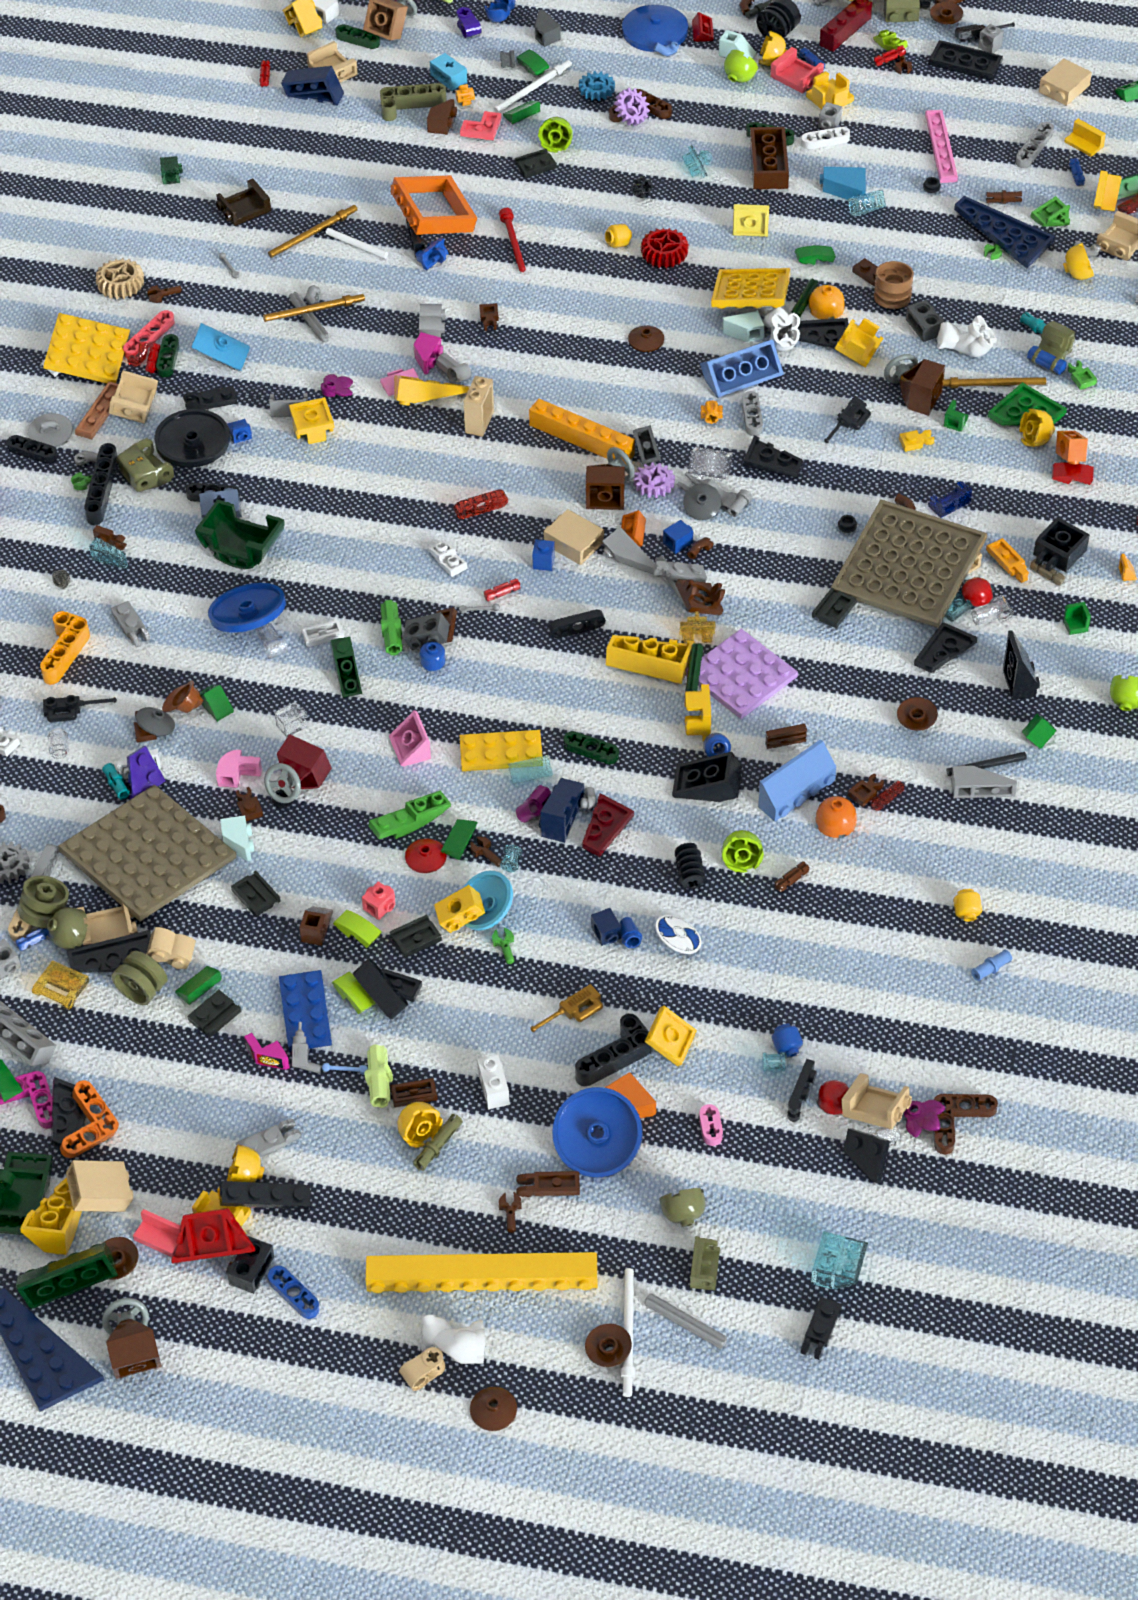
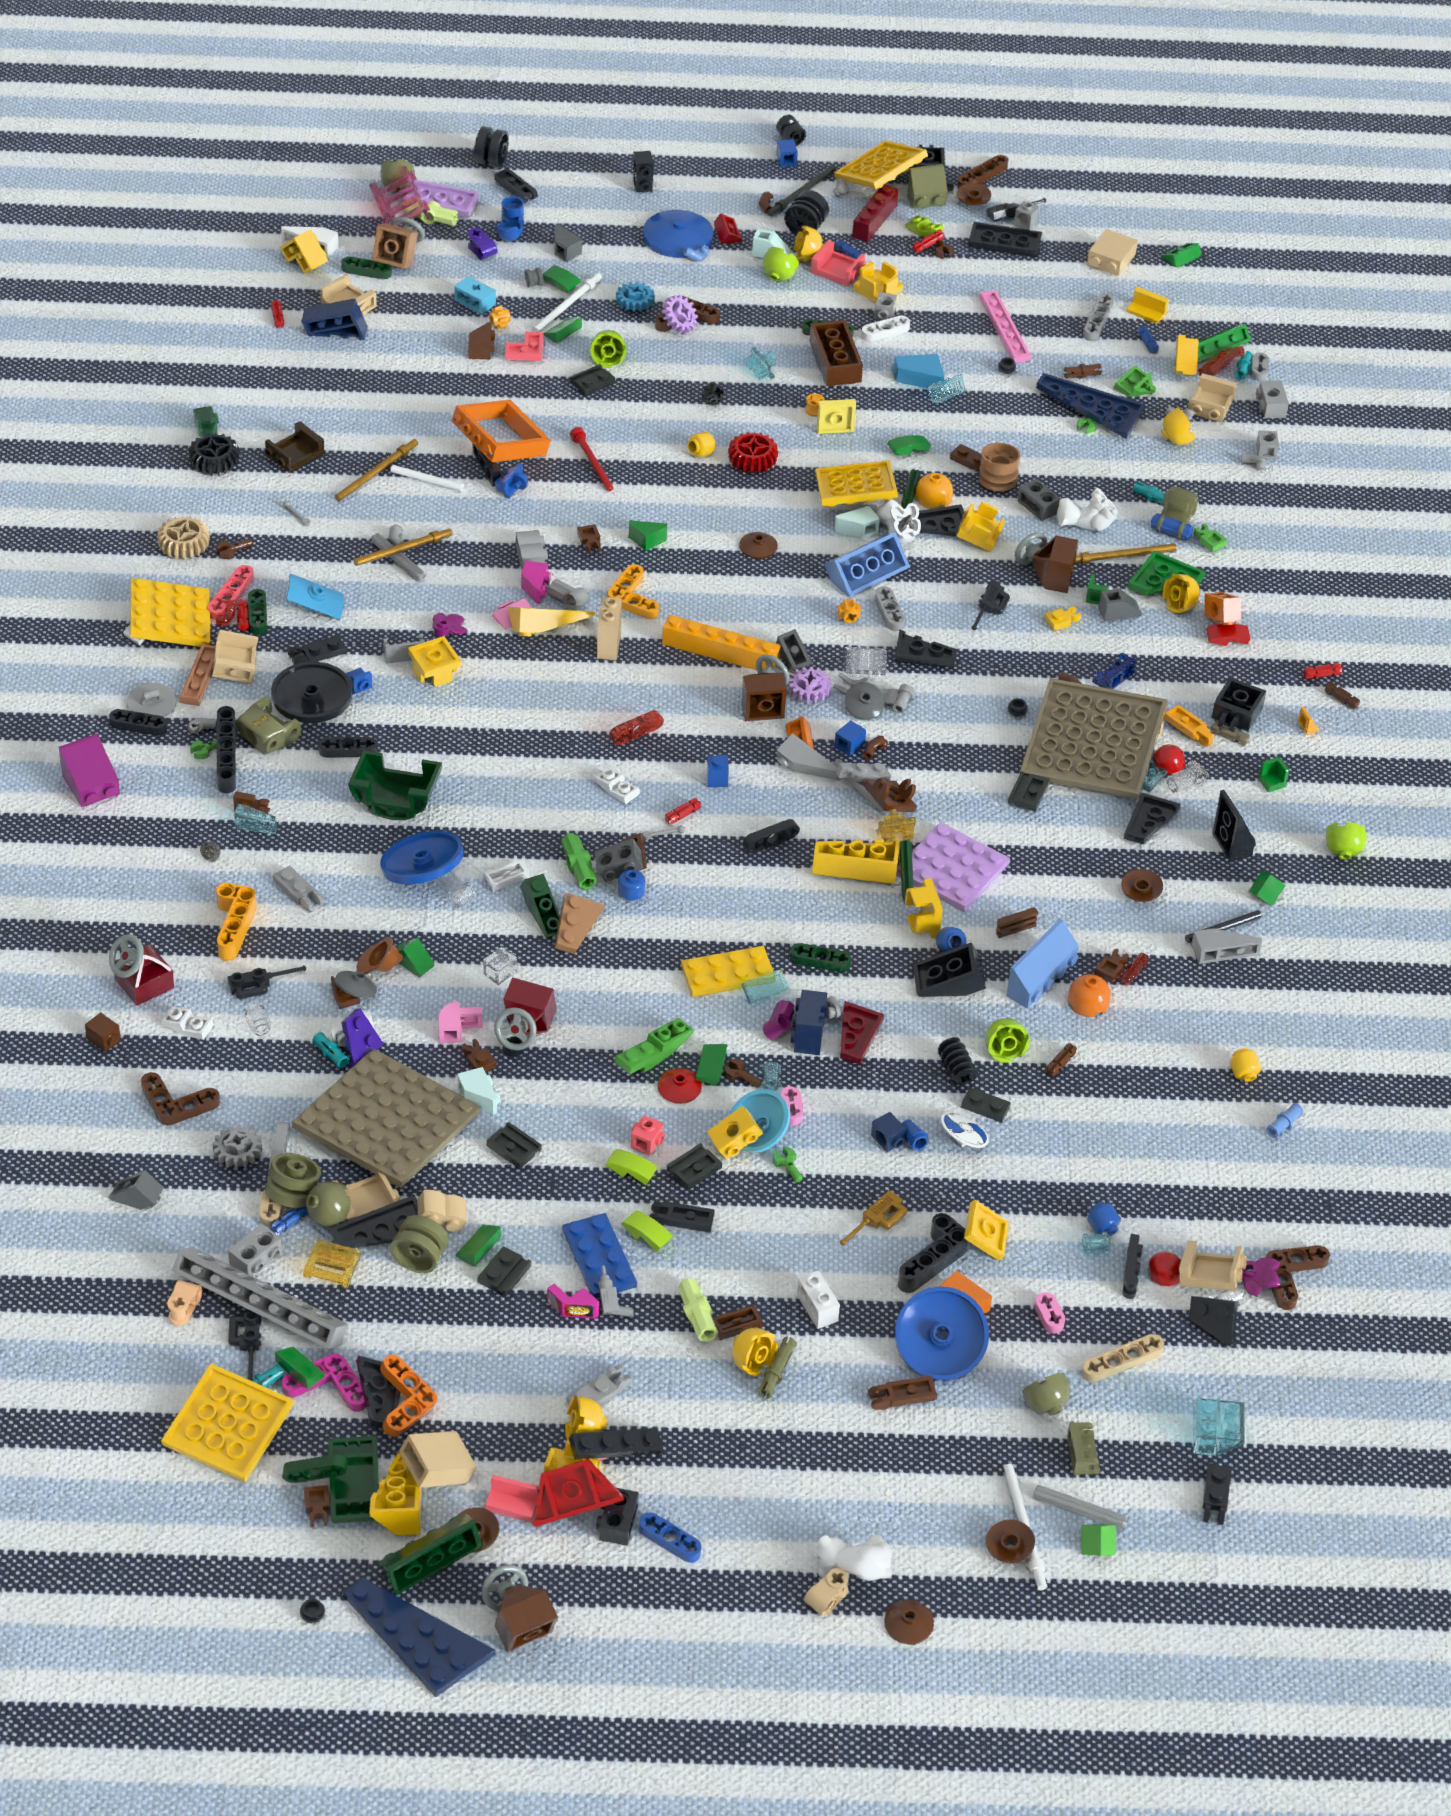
camera: 15 degrees left, 5 degrees down
(169, 202) = (214, 454): none -> black gear
(229, 495) = (351, 752): sand blue brick -> none
(315, 925) = (587, 1169): reddish brown slope -> none
(326, 1067) = (677, 1307): light blue hinge -> none
(372, 685) = (575, 921): none -> medium nougat wing
(380, 988) = (676, 1222): black beam -> none
(410, 97) = (442, 324): olive beam -> none
(411, 741) = (633, 971): bright pink slope -> none
(481, 1272) = (860, 1488): yellow brick -> none
(510, 1210) = (870, 1424): reddish brown bar -> none
(519, 888) = (796, 1105): none -> bright pink beam
(523, 388) = (645, 607): none -> light orange beam
(544, 317) = (647, 533): none -> green slope
(574, 536) = (745, 748): tan brick -> none
(693, 1356) = (1098, 1539): none -> bright green panel
(707, 911) = (985, 1104): none -> pearl dark grey plate
(734, 200) = (812, 404): none -> light orange wheel
(770, 1183) = (1125, 1361): none -> tan beam
(972, 433) = (1117, 605): none -> dark grey slope

